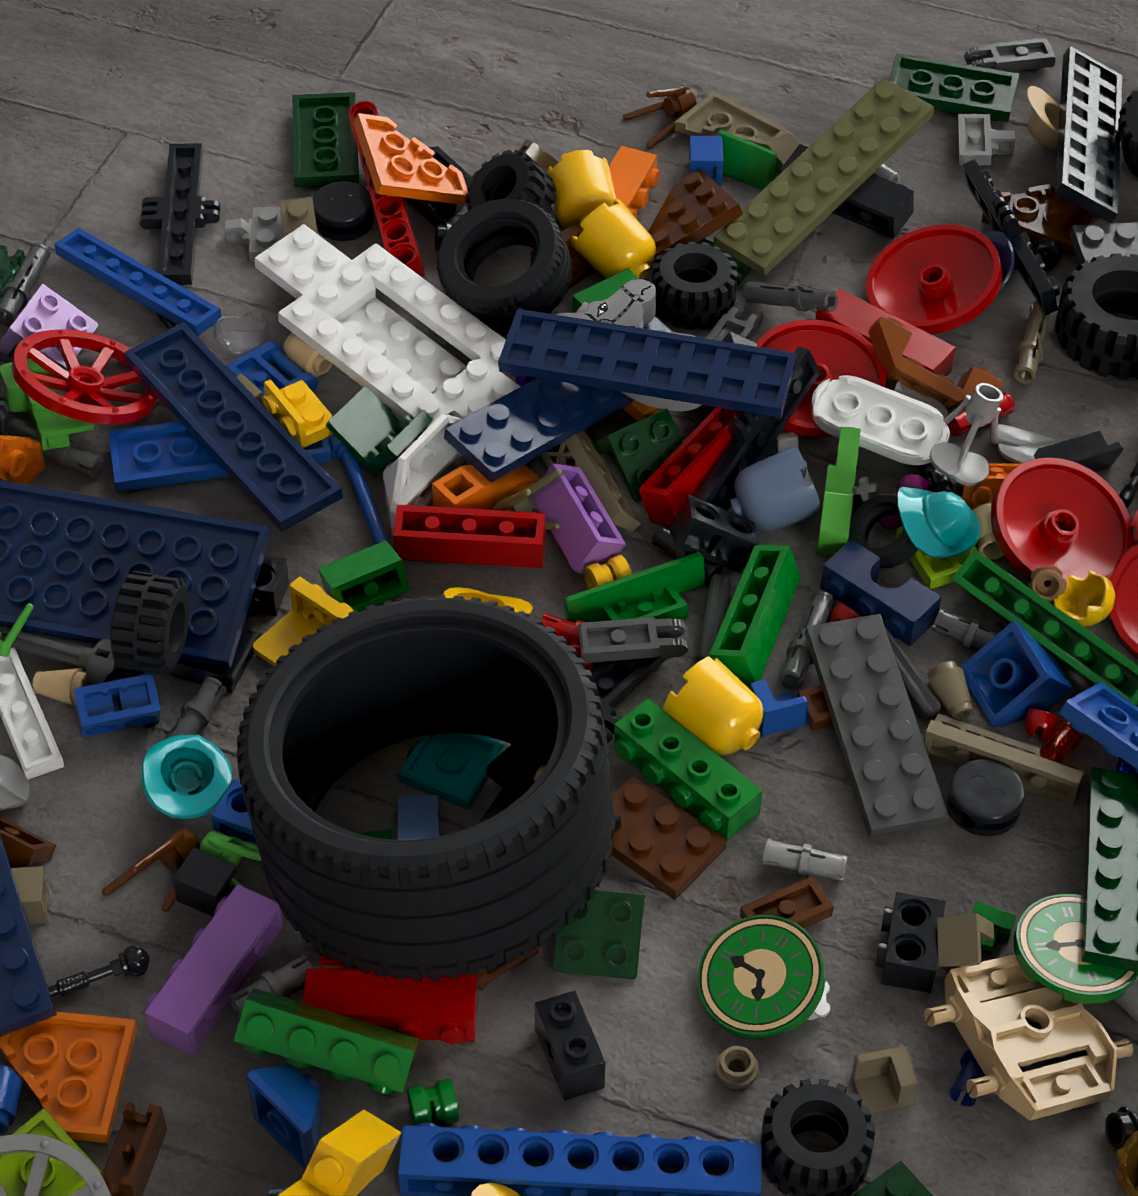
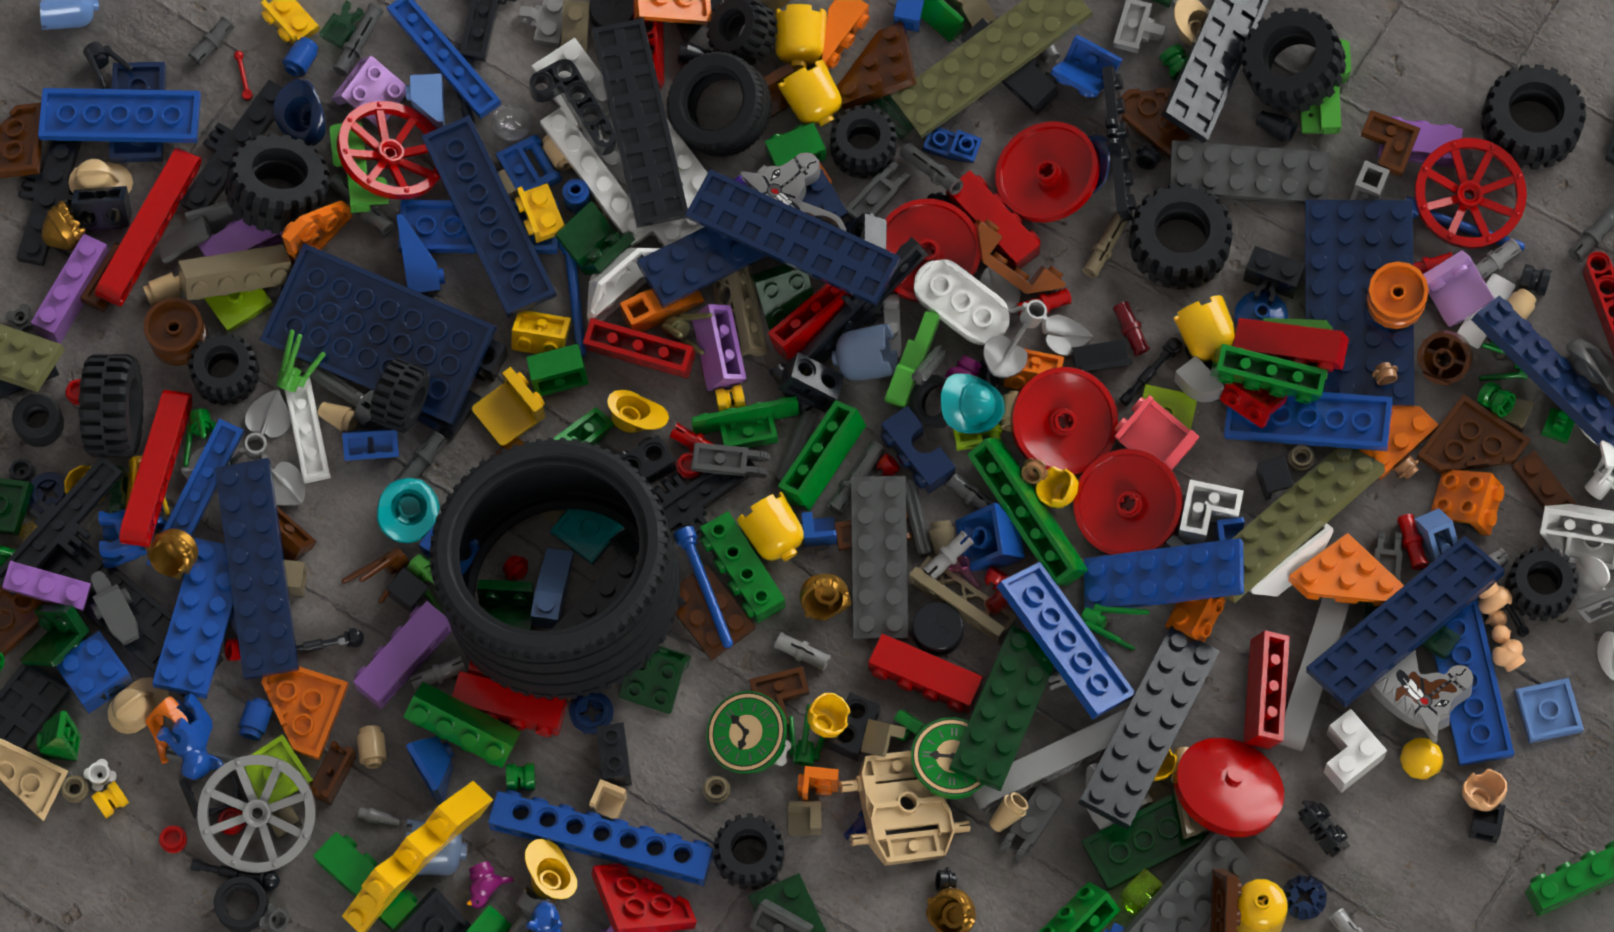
camera: 15 degrees right, 20 degrees up
(122, 319) = (427, 97): none -> medium blue slope
(141, 477) = (419, 265): none -> blue slope
(188, 1105) = (371, 746): none -> tan brick
(309, 259) = (579, 108): none -> black beam
(324, 543) = (539, 332): none -> yellow bracket
(340, 387) = (575, 195): none -> blue brick
(360, 820) = (515, 568): none -> red plate
(411, 294) = (639, 122): none -> black plate
(525, 982) = (580, 706): none -> dark blue gear
(578, 1106) = (608, 800): none -> tan panel
(652, 809) = (686, 538): none -> blue piece
(815, 272) = (951, 145): none -> blue slope
(815, 780) = (824, 596): none -> pearl gold hair
(852, 991) = (804, 752): none -> green plant
(880, 919) = (828, 715): none -> yellow hair
(892, 1017) = (820, 779): none -> orange bracket
(939, 176) = (1084, 67): none -> blue bracket
(971, 699) = (948, 555): none -> light grey pin
(989, 713) = (963, 566): none -> clear pink hand
(990, 854) = (925, 673): none -> red brick
(1039, 162) = (1173, 59): none -> green wheel
(1100, 420) = (1131, 328): none -> dark red pin

